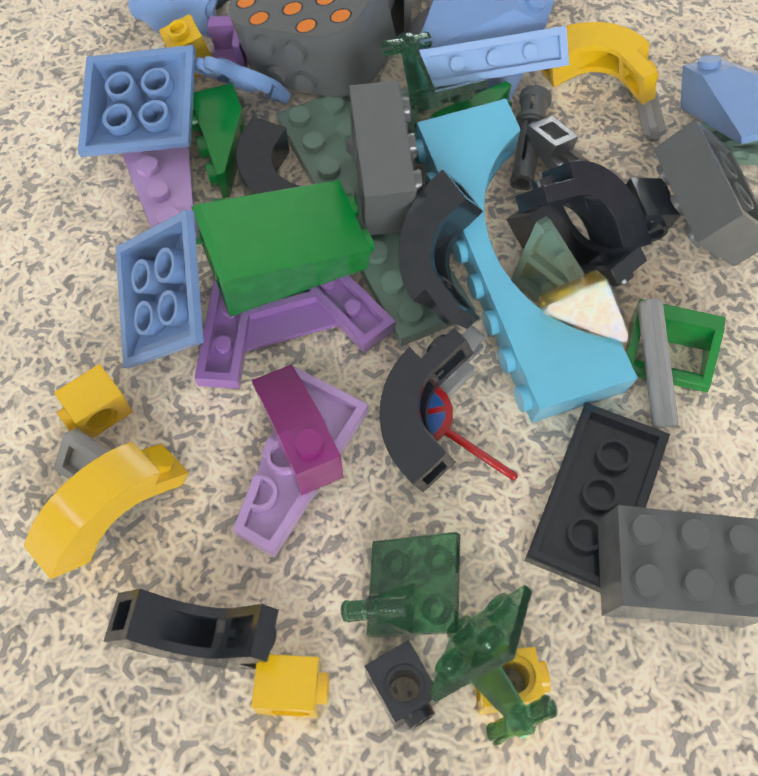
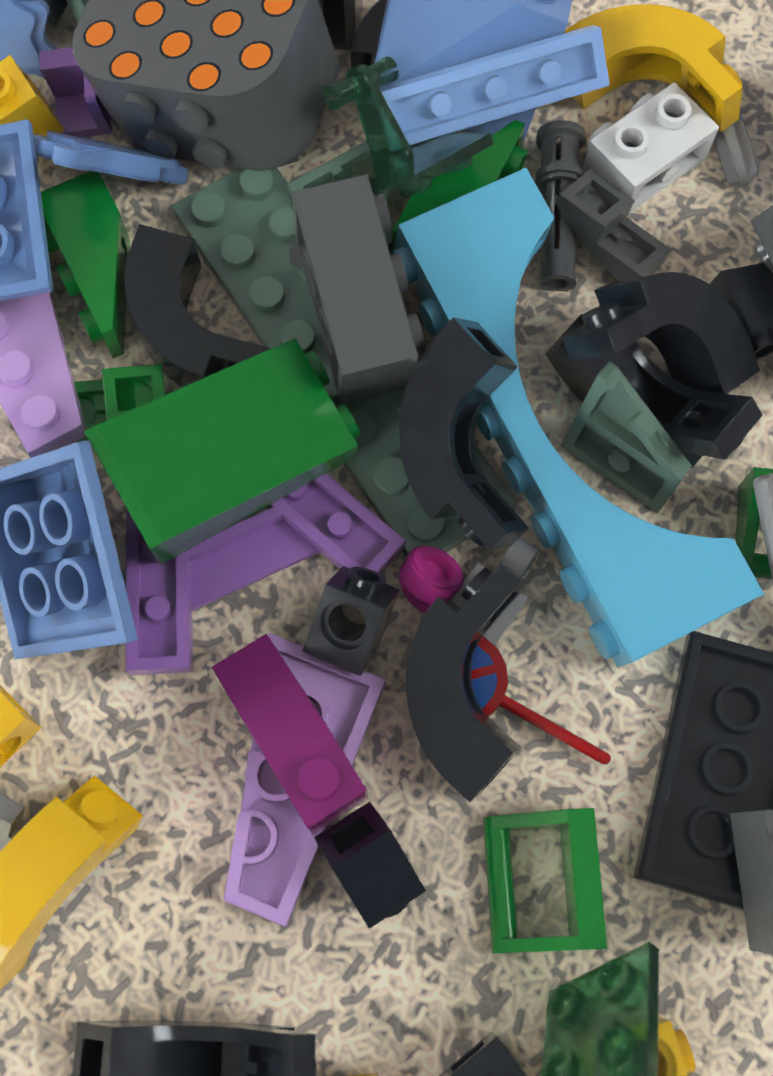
camera: 10 degrees left, 10 degrees up
(334, 367) = (334, 635): none -> black brick
(338, 519) = (370, 864): none -> black brick
(403, 338) = (429, 574): none -> dark pink tile
(411, 587) = (487, 955): clear green plate -> none
(486, 514) = (581, 879): none -> green tile
(587, 304) = (679, 495): clear yellow slope -> none
(596, 107) = (651, 144): none -> white brick

